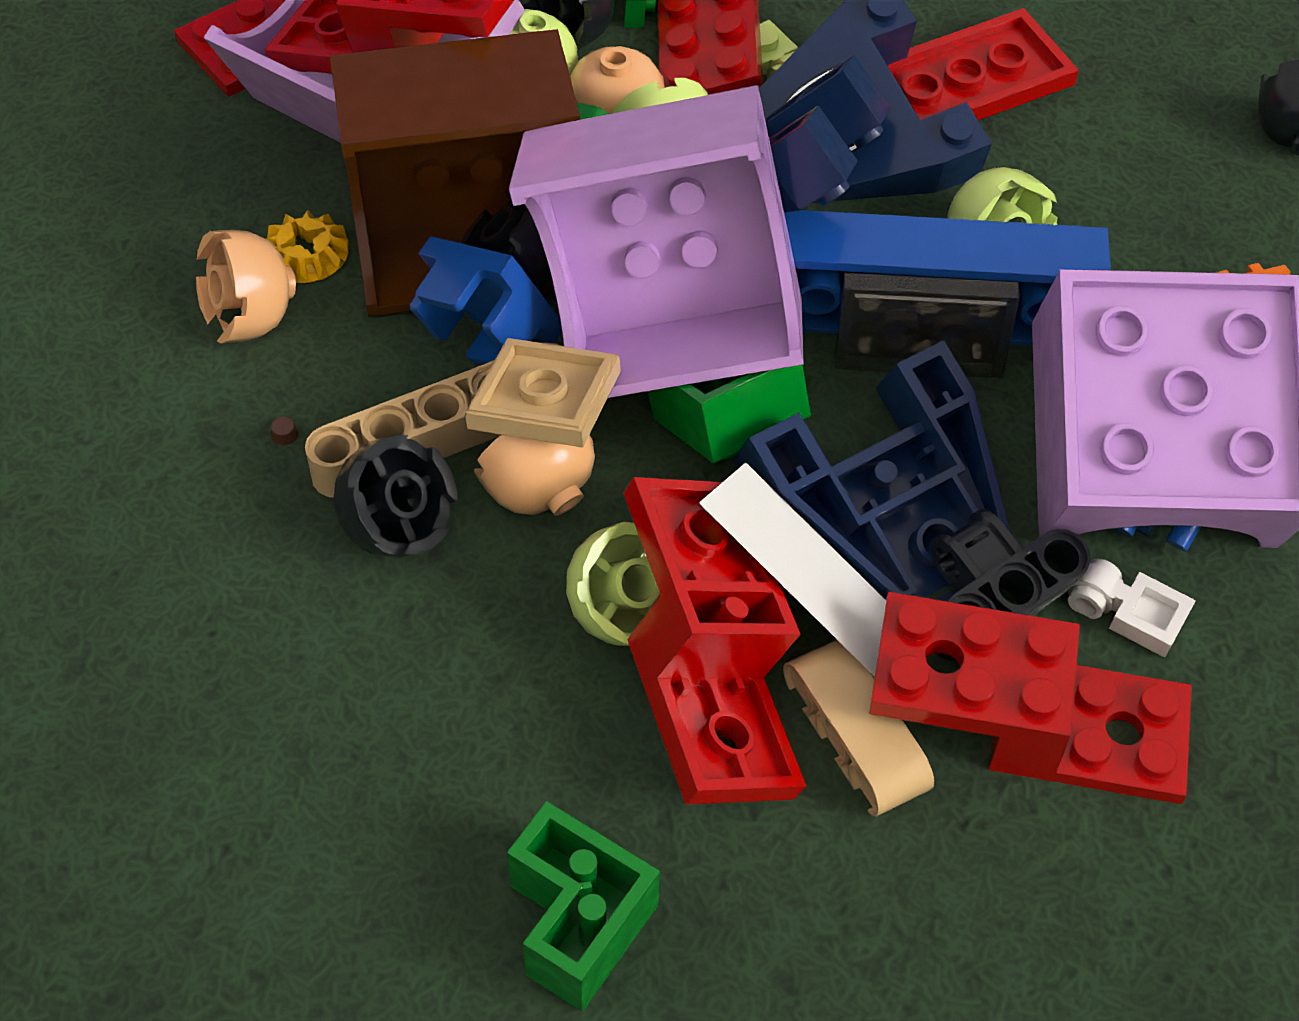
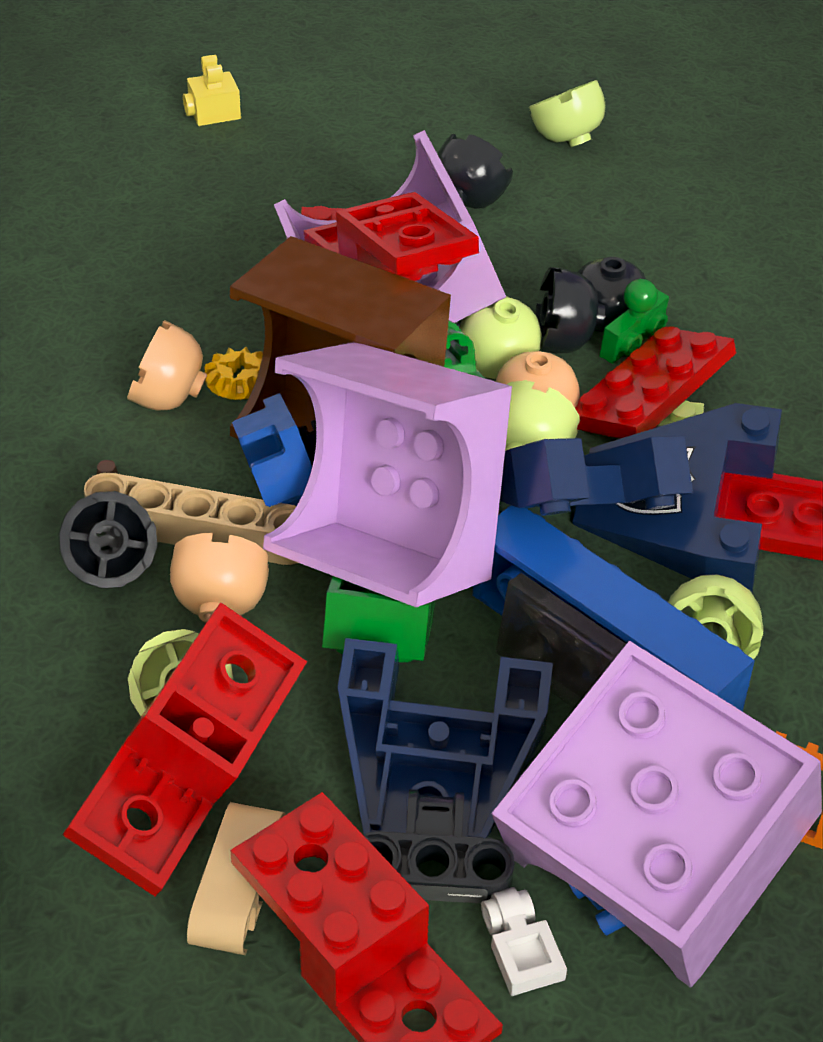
camera: 40 degrees right, 10 degrees down
(543, 392) = (239, 524): tan tile -> none
(800, 561) = (298, 730): white sticker -> none

